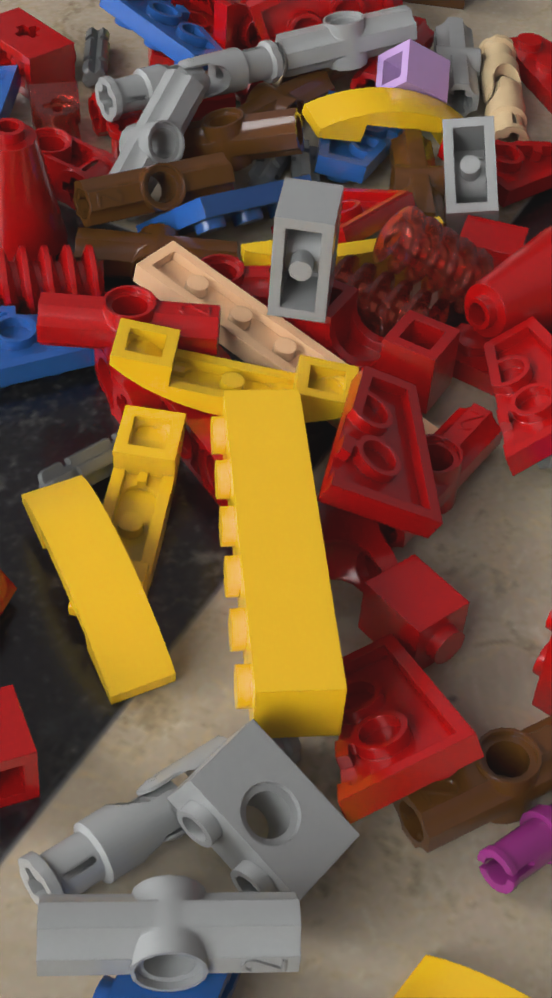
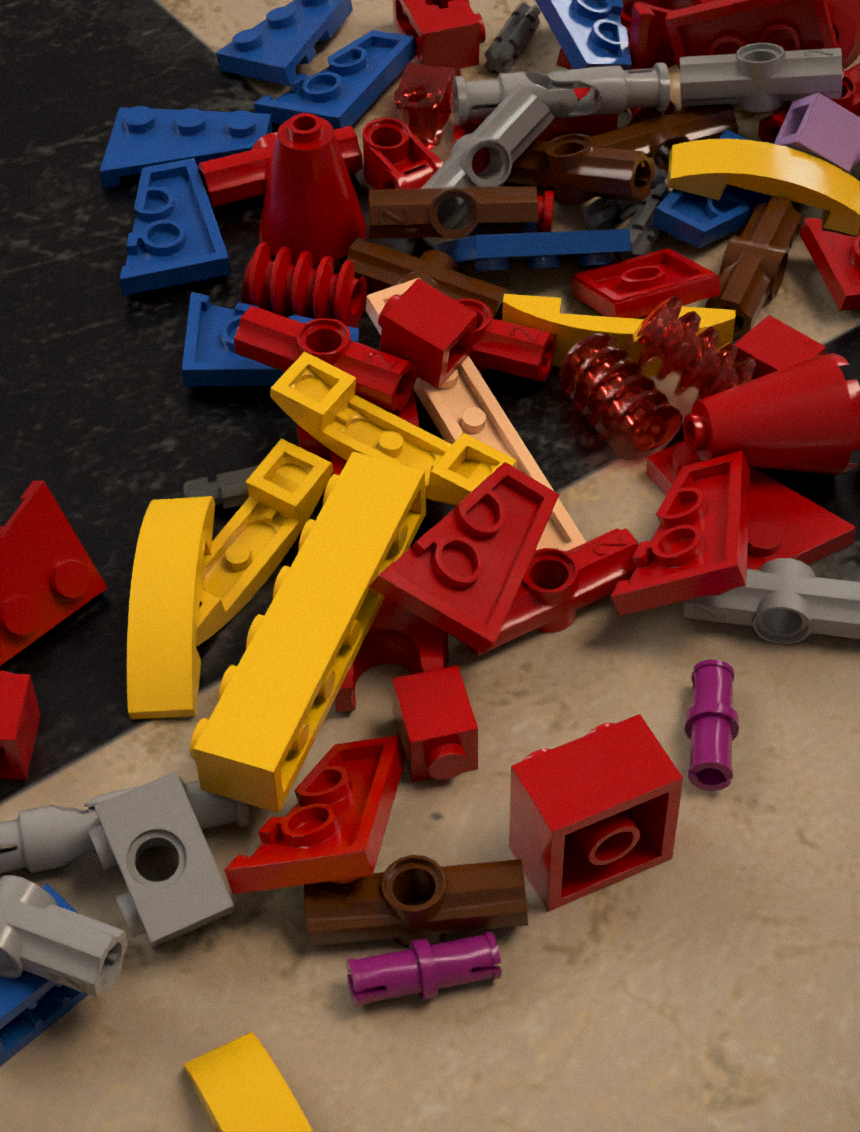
camera: 30 degrees right, 5 degrees up
(219, 274) = (428, 330): none -> red brick
(304, 249) = (511, 324): light grey brick -> none
(413, 350) = (595, 462): red arch -> none
(470, 169) = (798, 268): light grey brick -> none

